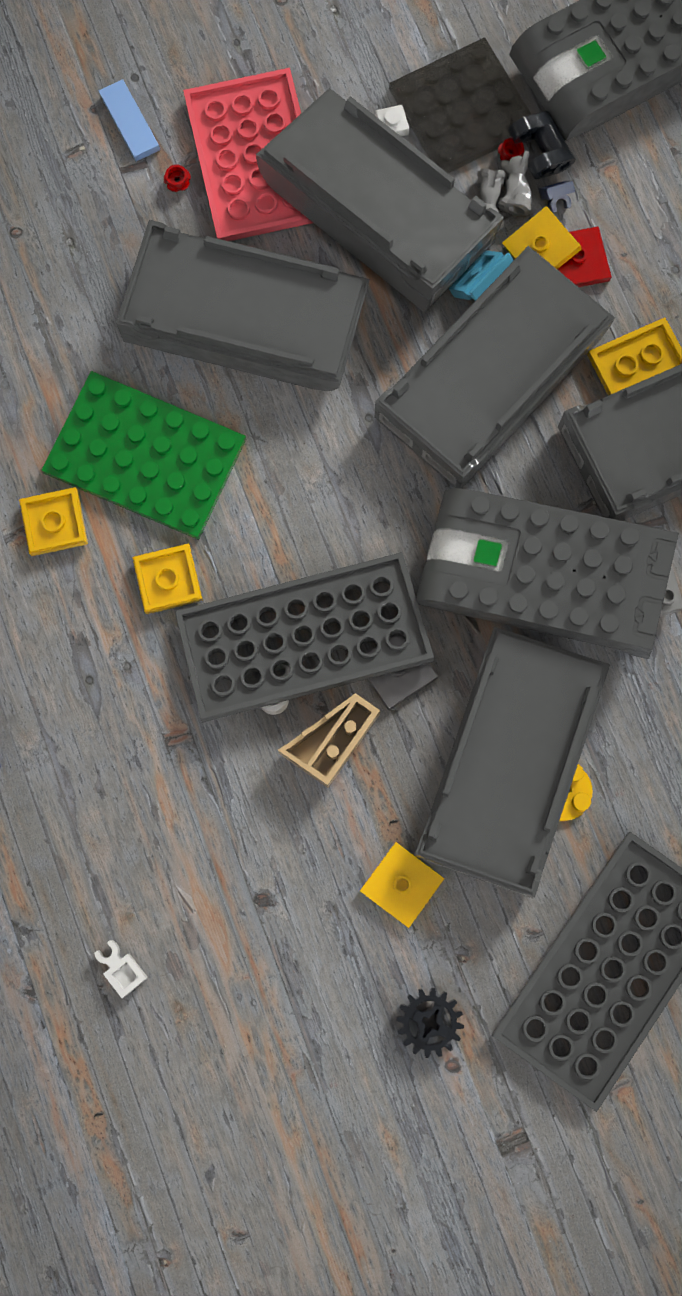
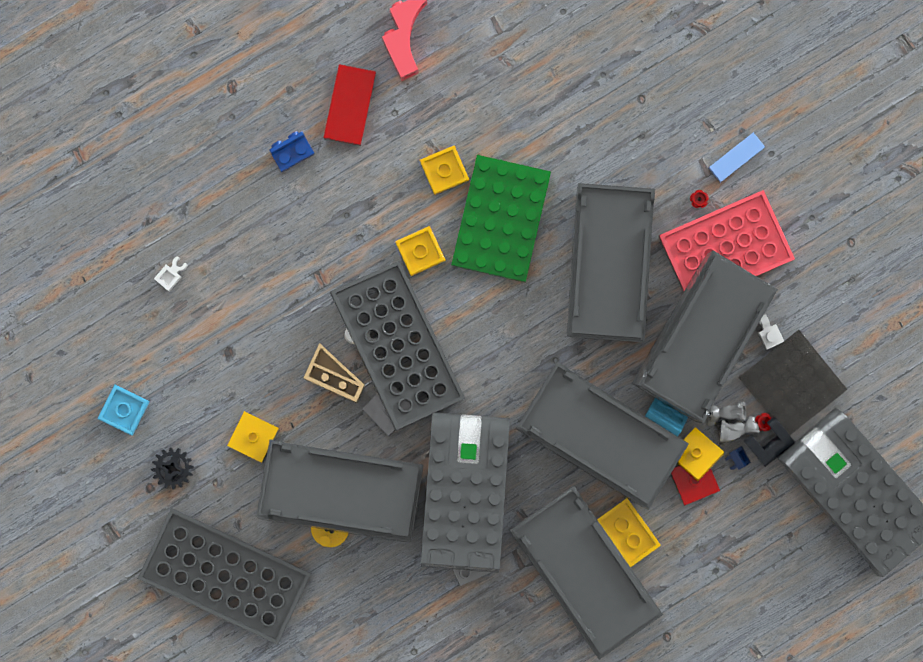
camera: 75 degrees right, 5 degrees up
(322, 1086) = (123, 410): none -> medium azure plate

